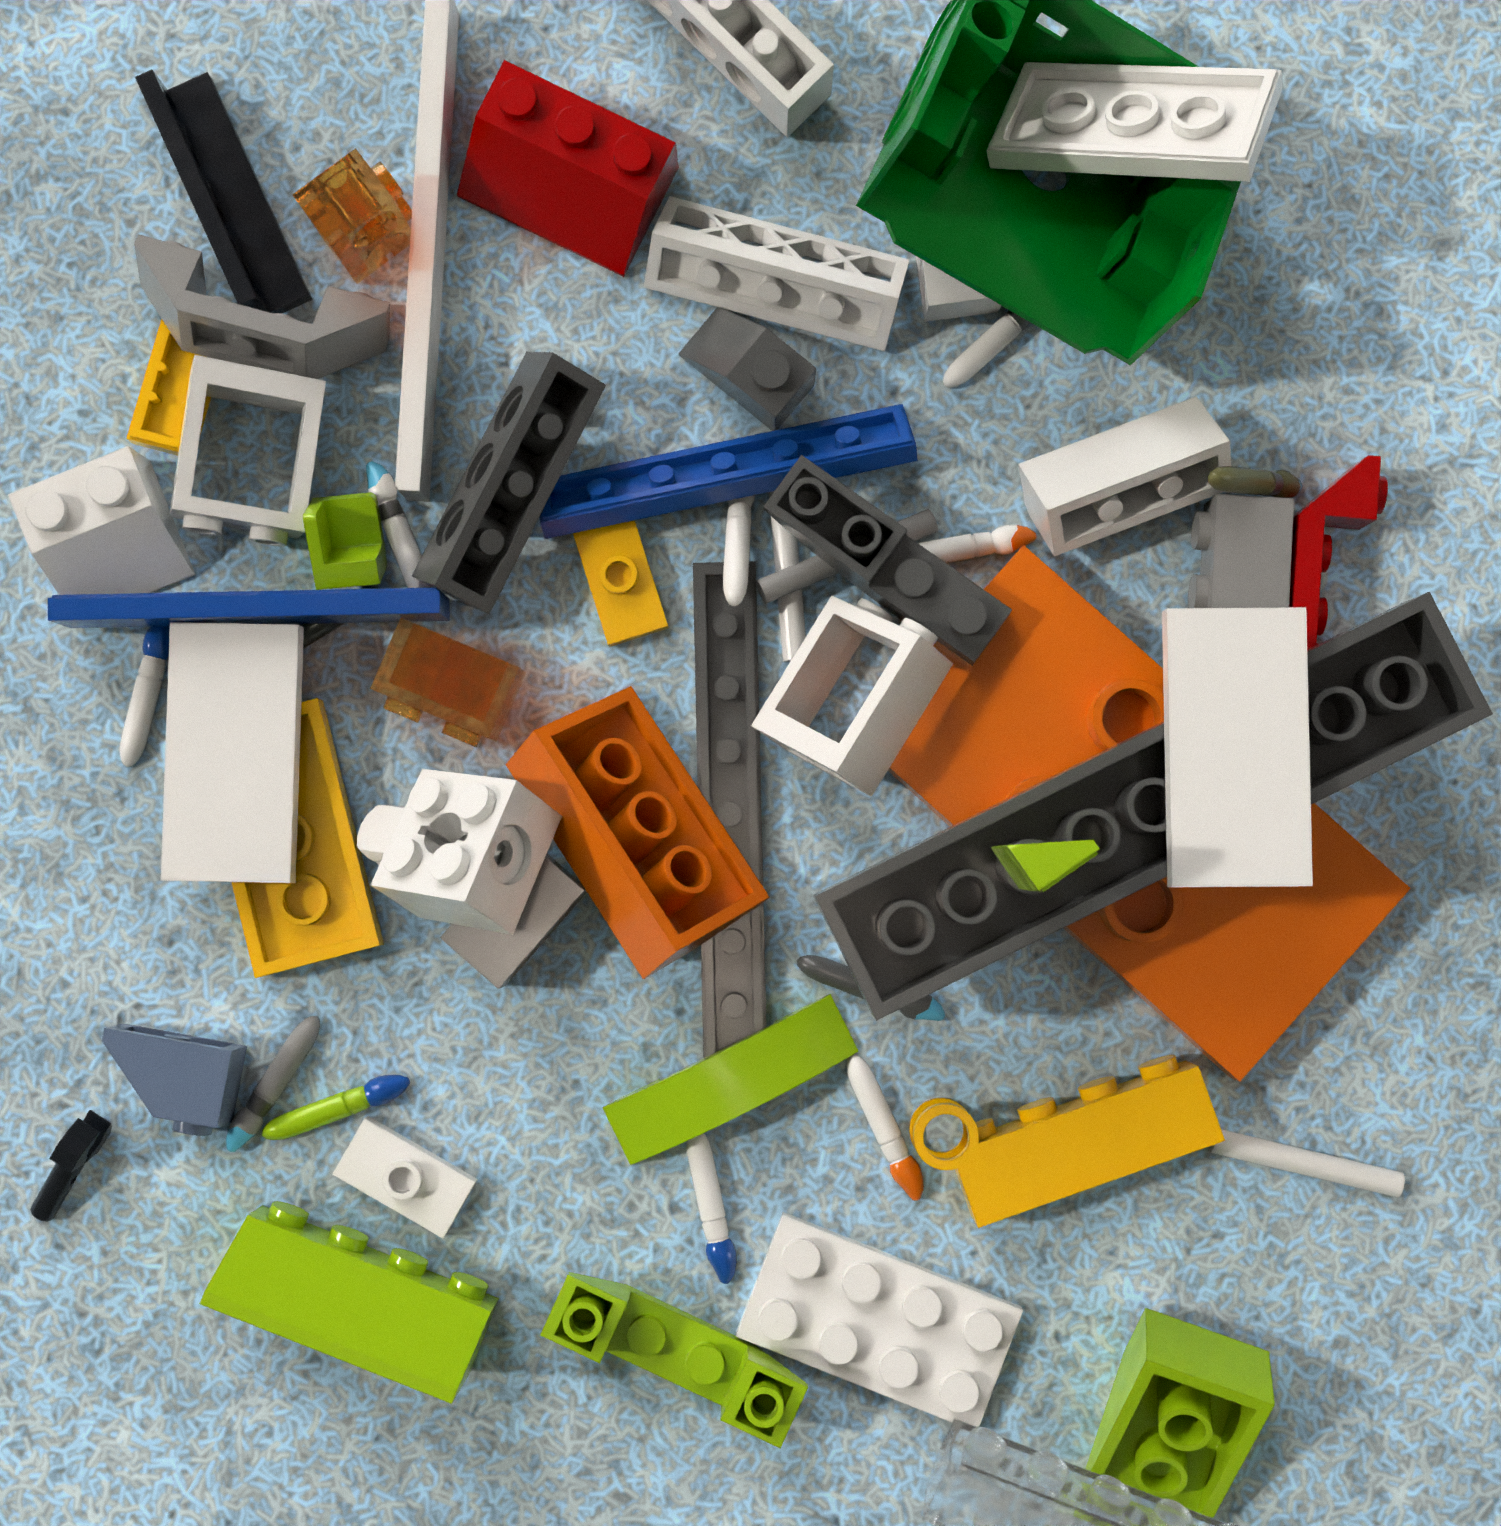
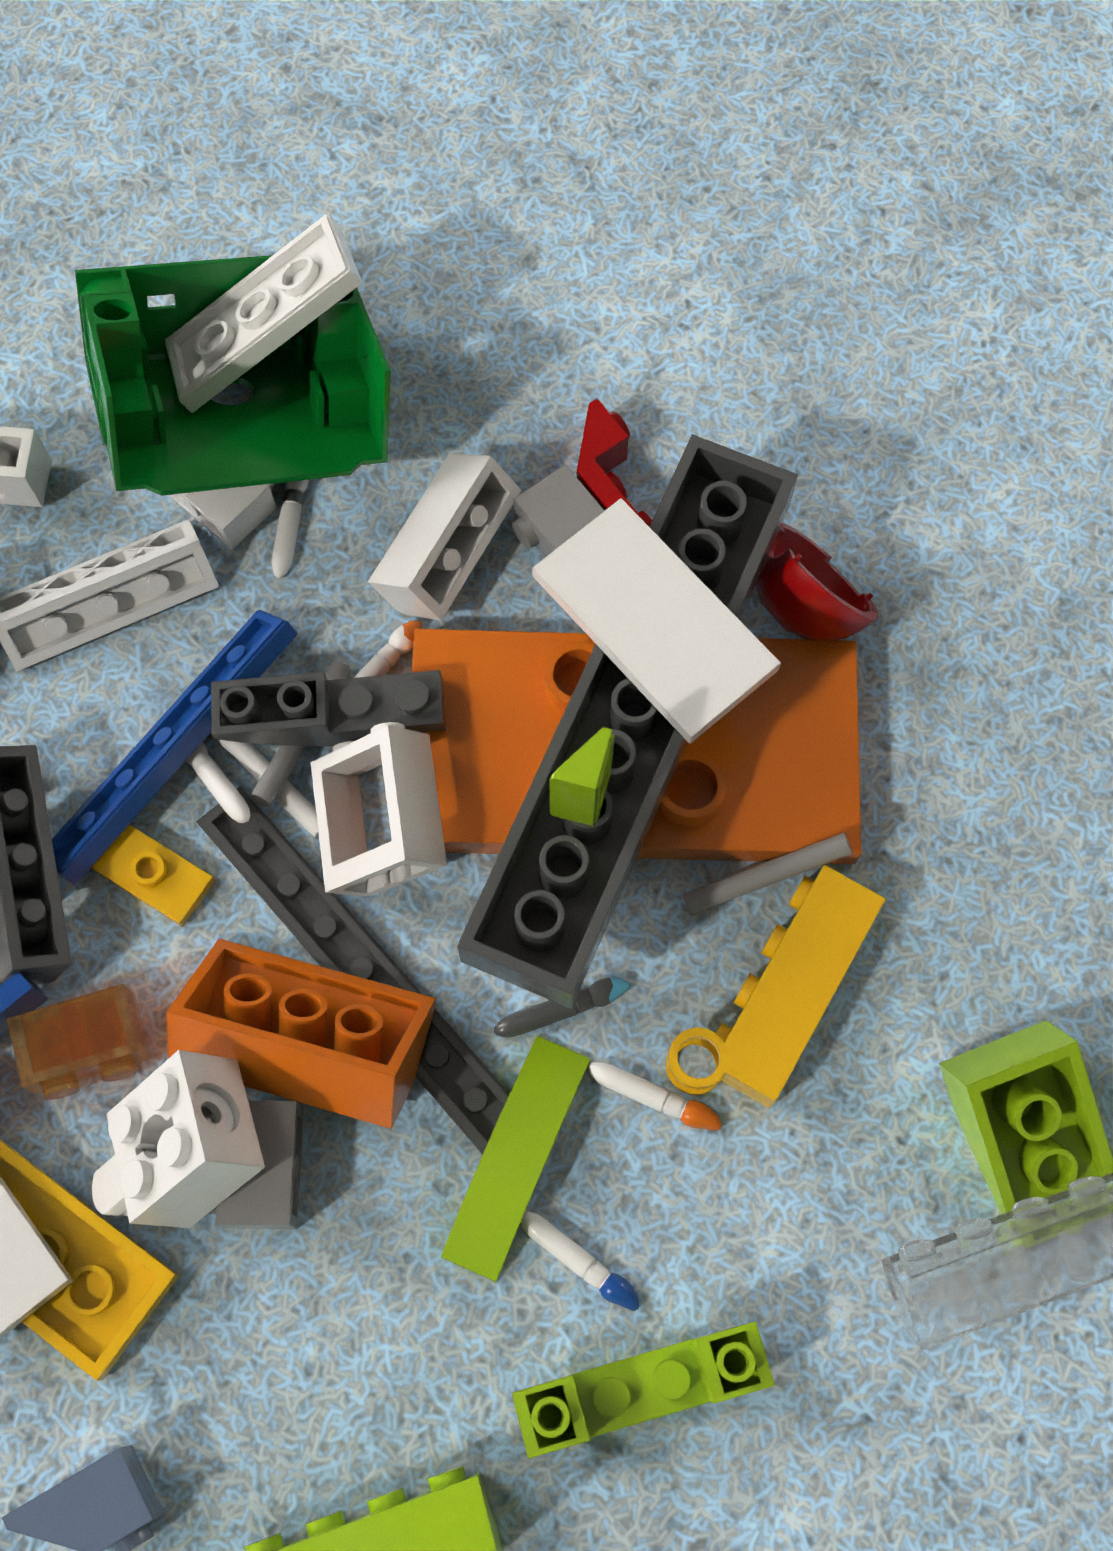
camera: 45 degrees left, 15 degrees down
(270, 1087) = (174, 1457): light grey piece -> none
(375, 1092) = (259, 1394): lime piece -> none
(405, 1176) = (333, 1439): white plate -> none
(750, 366) = (134, 662): dark grey slope -> none
(879, 1321) = (768, 1239): white plate -> none
(1145, 1029) = (768, 873): none -> light grey bar
(1255, 481) = (528, 474): olive piece -> none
(1310, 1163) = (956, 876): white bar -> none
(1412, 816) = (809, 592): none -> red cylinder

